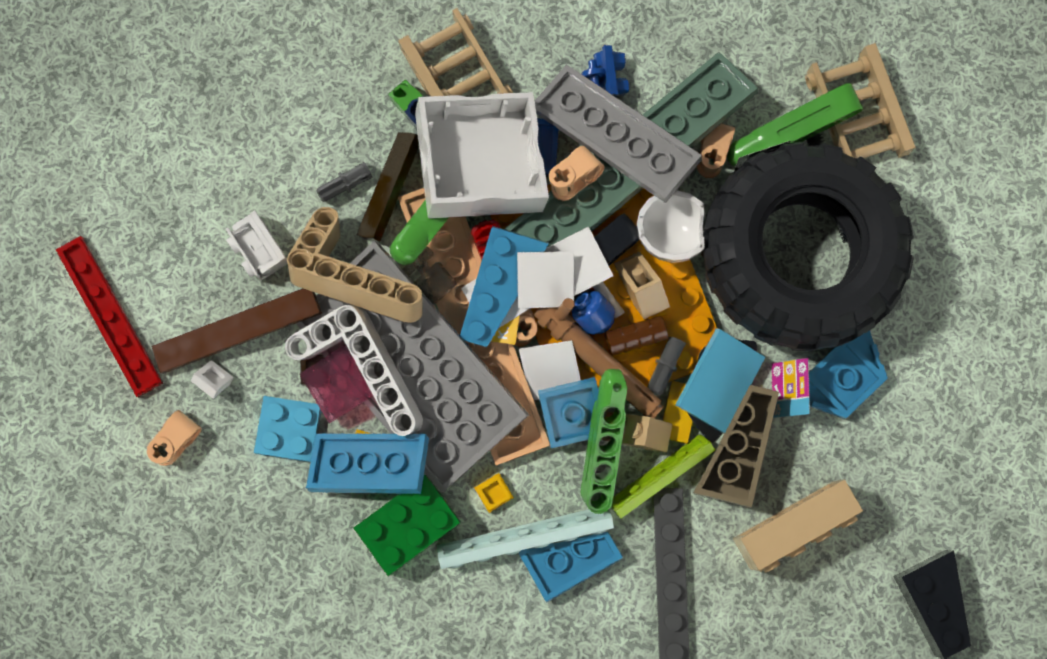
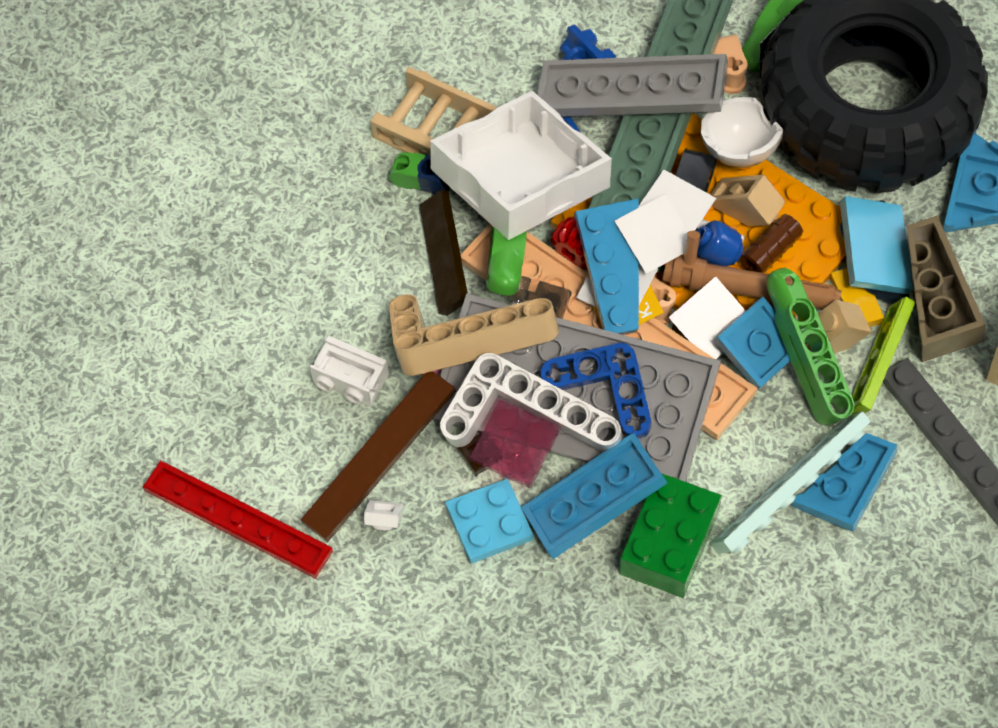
camera: 30 degrees left, 20 degrees down
(175, 436) = (380, 588): light nougat piece -> none
(344, 182) = (397, 272): dark grey axle -> none
(437, 370) = (605, 371): none -> blue beam
(493, 492) = (732, 464): yellow tile -> none
(574, 172) = (619, 135): light nougat piece -> none
(666, 365) = (816, 254): dark grey axle -> none
(792, 383) = (949, 206): sticker -> none

